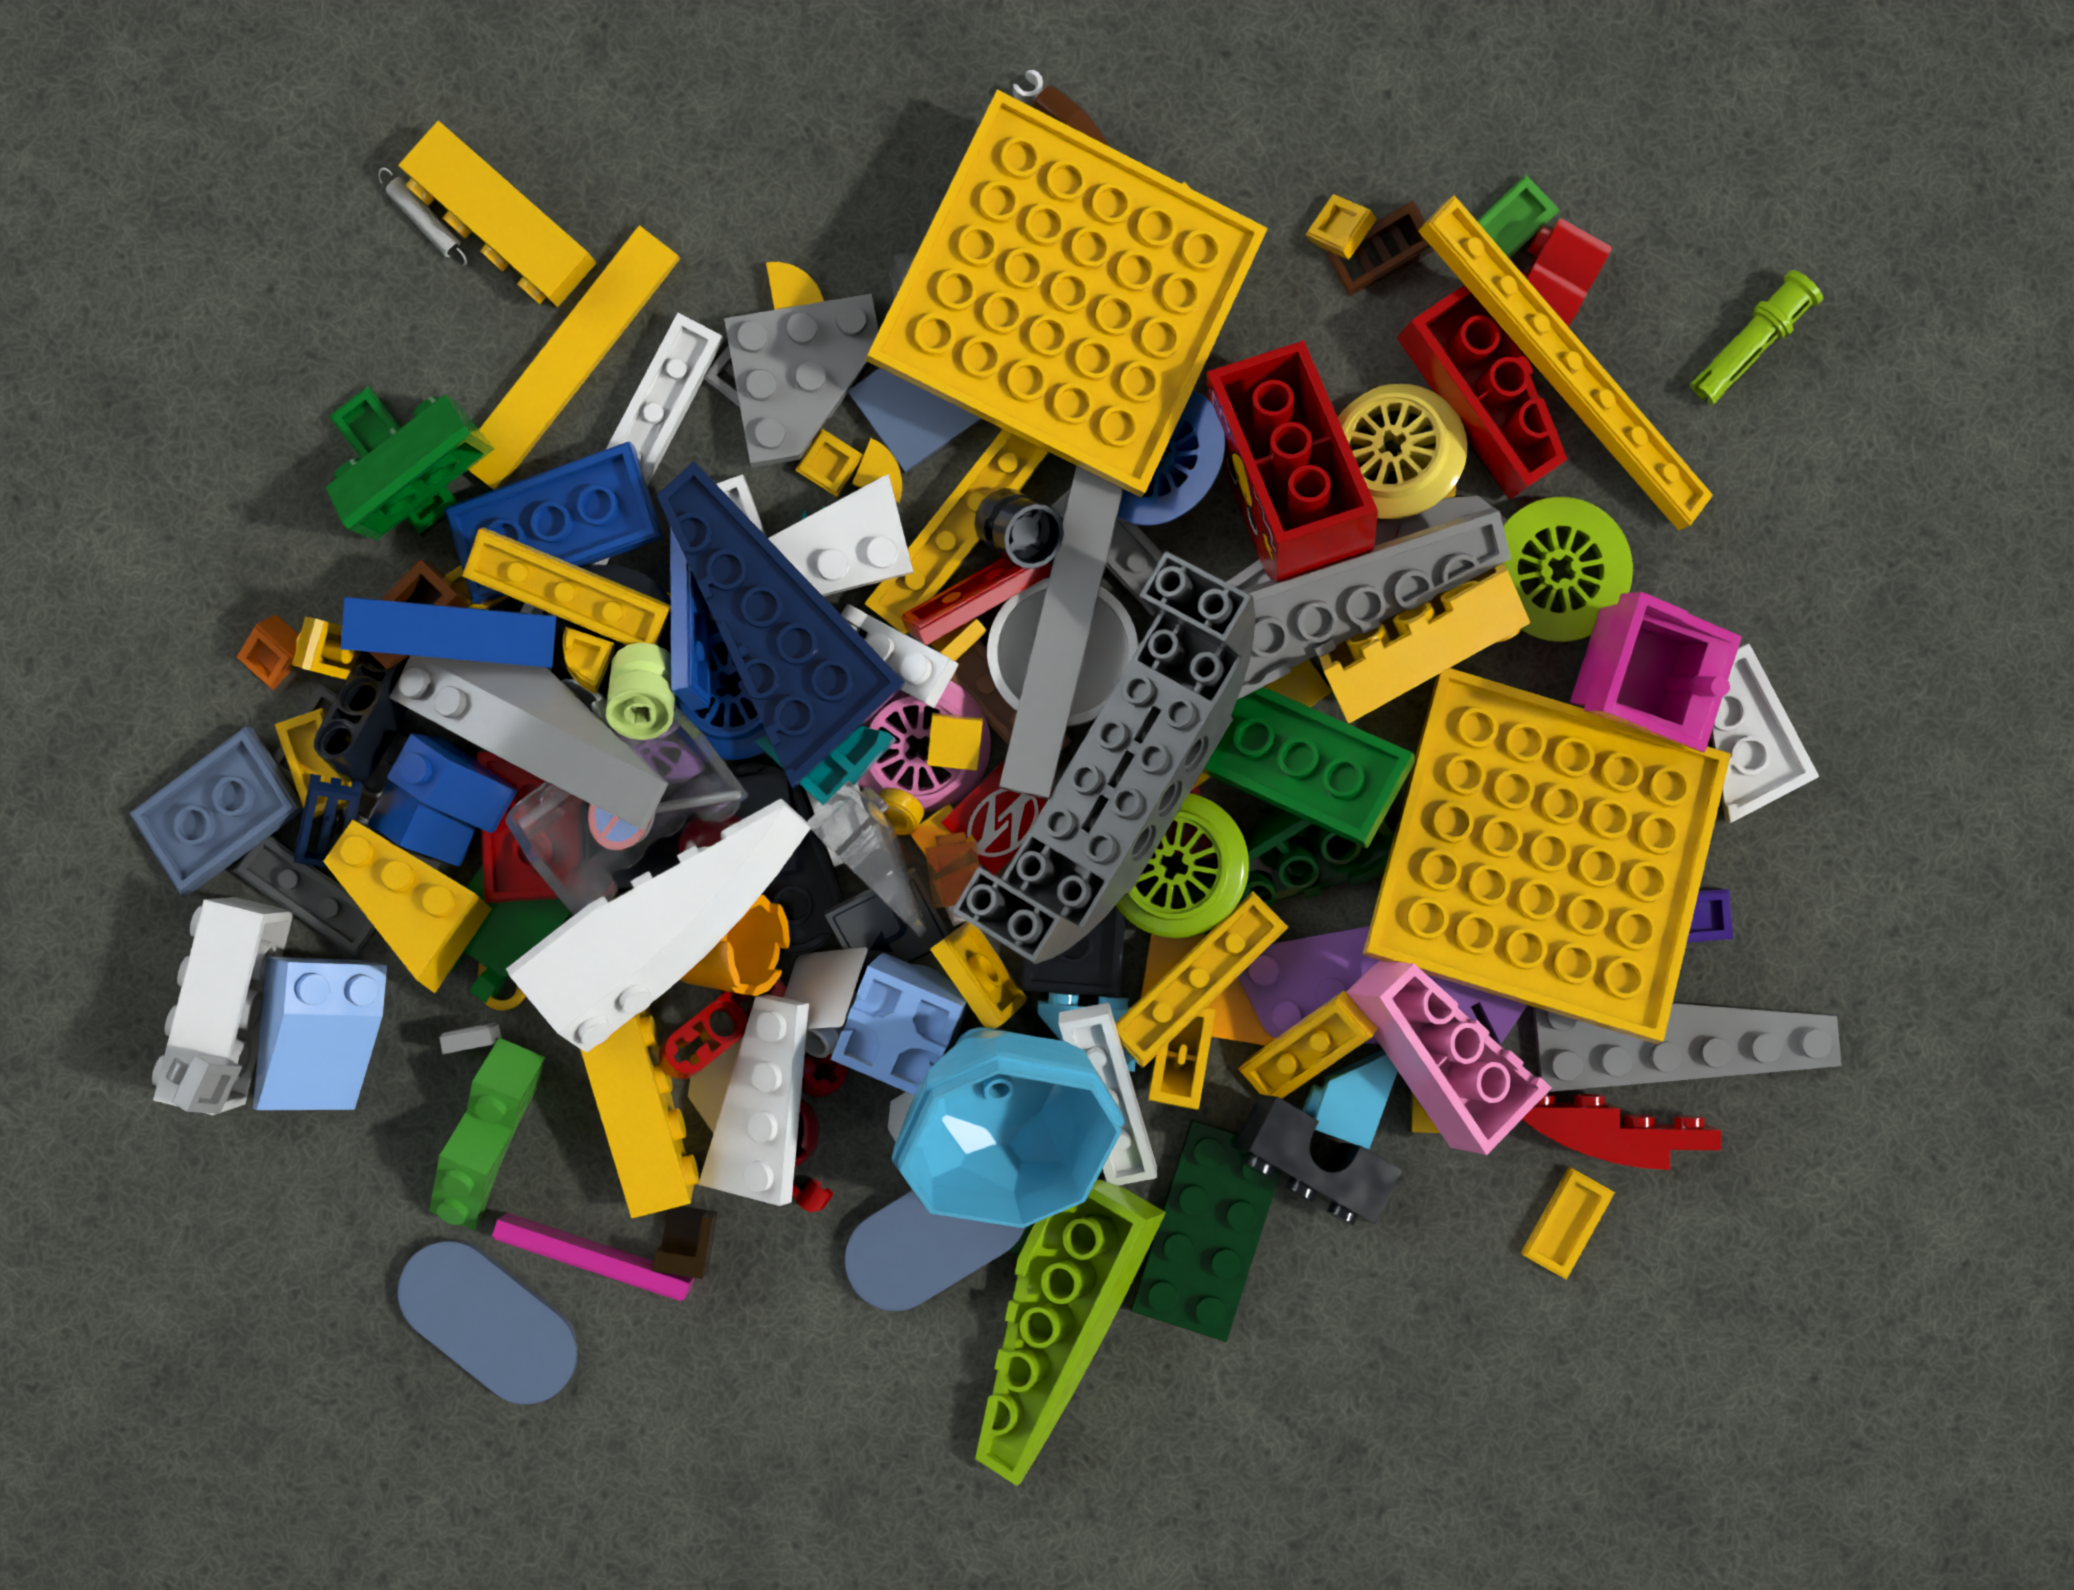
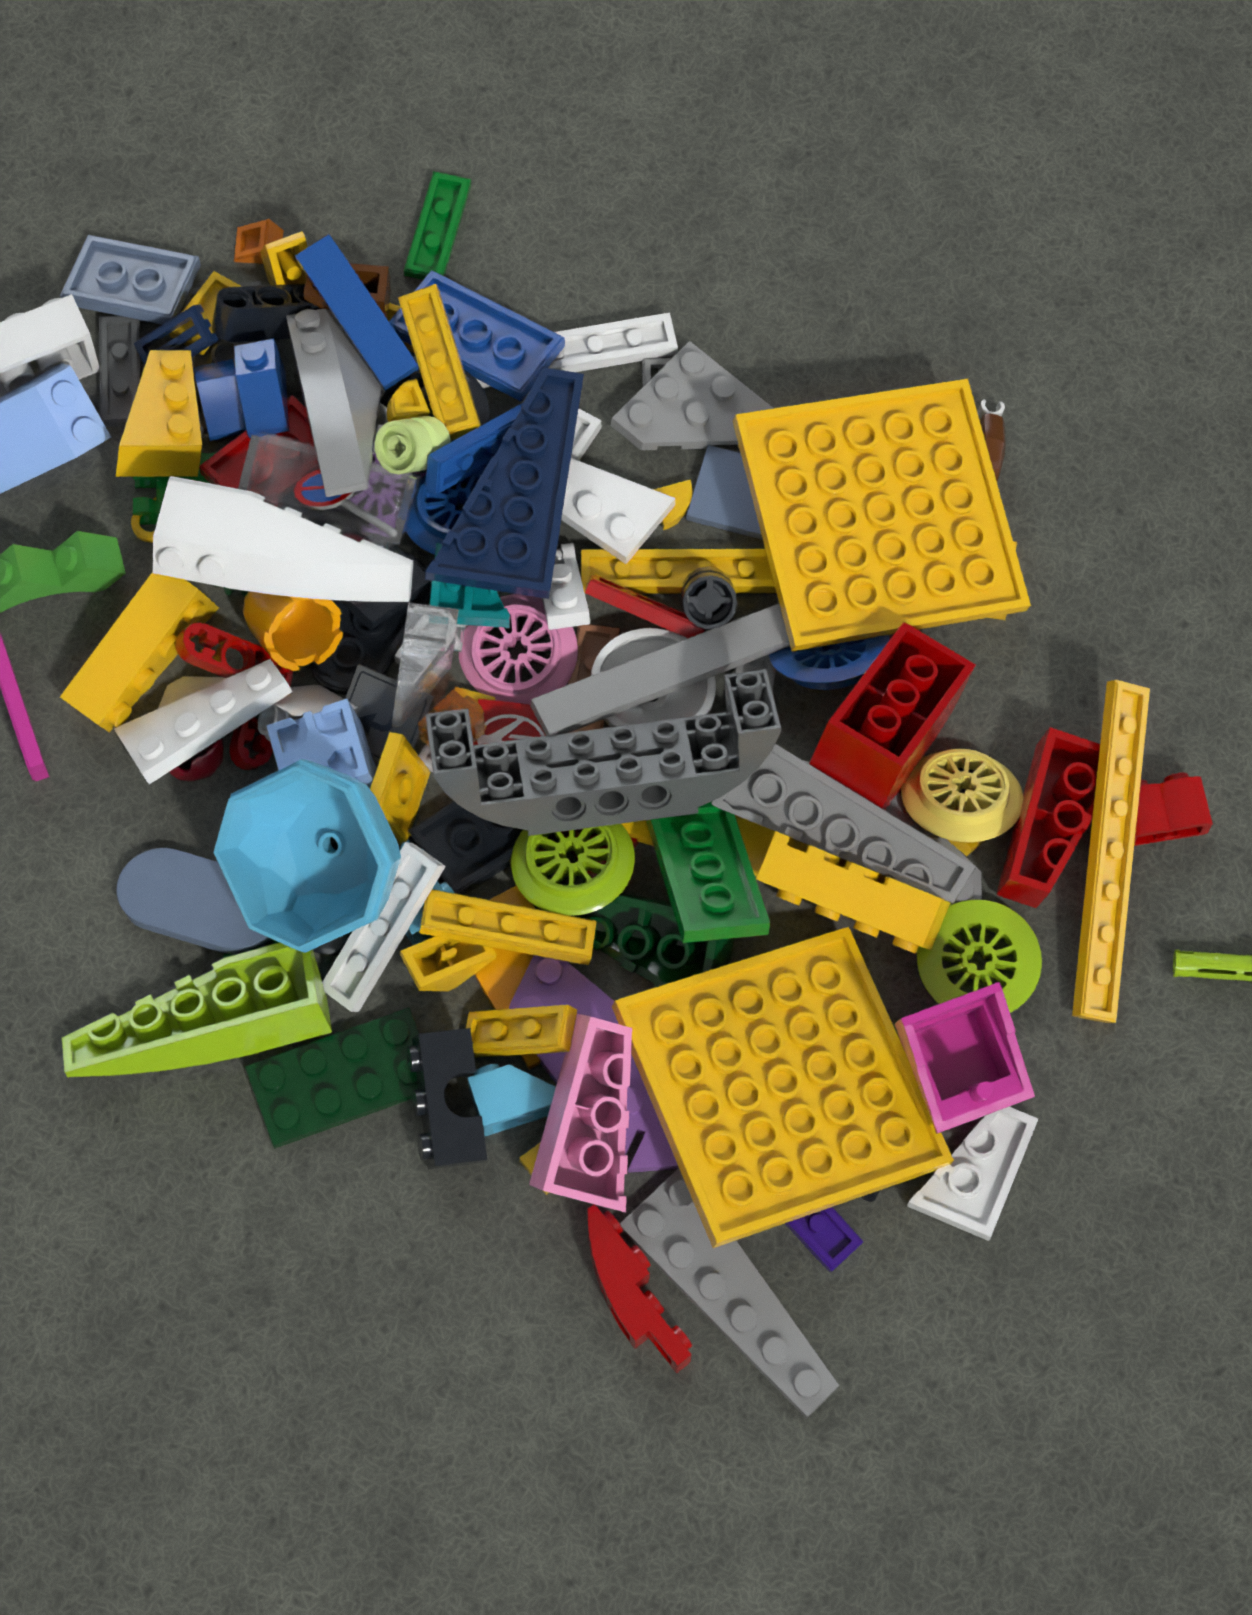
camera: 50 degrees right, 20 degrees down
(407, 467) = (439, 230): green slope -> none
(421, 216) = (602, 135): white piece -> none
(470, 1037) = (101, 521): light grey tile -> none
(497, 214) = (639, 174): yellow brick -> none
(572, 354) = (587, 276): yellow tile -> none
(686, 1242) = (69, 752): dark brown panel -> none
(791, 286) = (745, 366): yellow tile -> none
(812, 1197) = (160, 805): red hand -> none
(829, 463) = (653, 467): yellow tile -> none
(903, 811) = (464, 669): yellow tile -> none
(954, 741) = (538, 662): yellow tile -> none
(959, 640) = (609, 618): yellow tile -> none
(1341, 226) = (1074, 655): yellow tile -> none
(1408, 255) = (1078, 705): reddish brown slope -> none
(1518, 216) = (1172, 755): bright green tile -> none
(1567, 1223) = (541, 1316): yellow tile -> none

